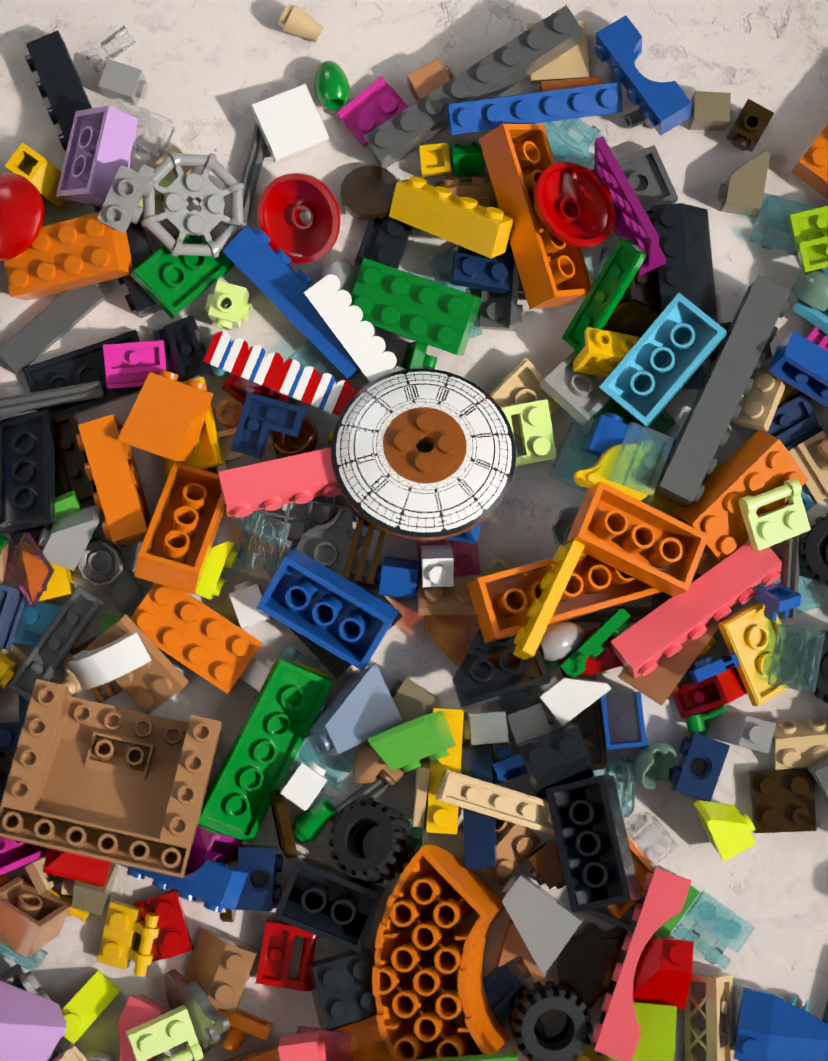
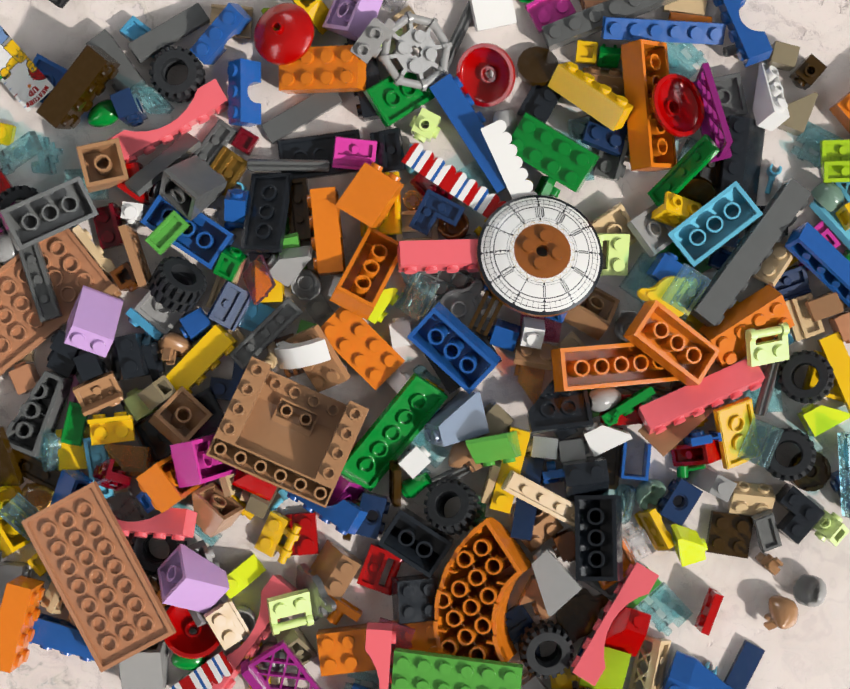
camera: 10 degrees right, 5 degrees up
(122, 871) = (283, 494): none -> medium azure hand
(518, 521) = (594, 314): none -> medium nougat slope
(543, 609) = (599, 378): yellow plate -> none
(672, 814) = (655, 529): none -> yellow plate
(680, 408) = (718, 258): none -> dark blue tile
(704, 175) = (769, 100): none -> white slope
(732, 280) = (771, 175): none -> medium azure hand
(777, 600) = (756, 402): blue tile -> none
(777, 918) = (709, 611): none -> red plate

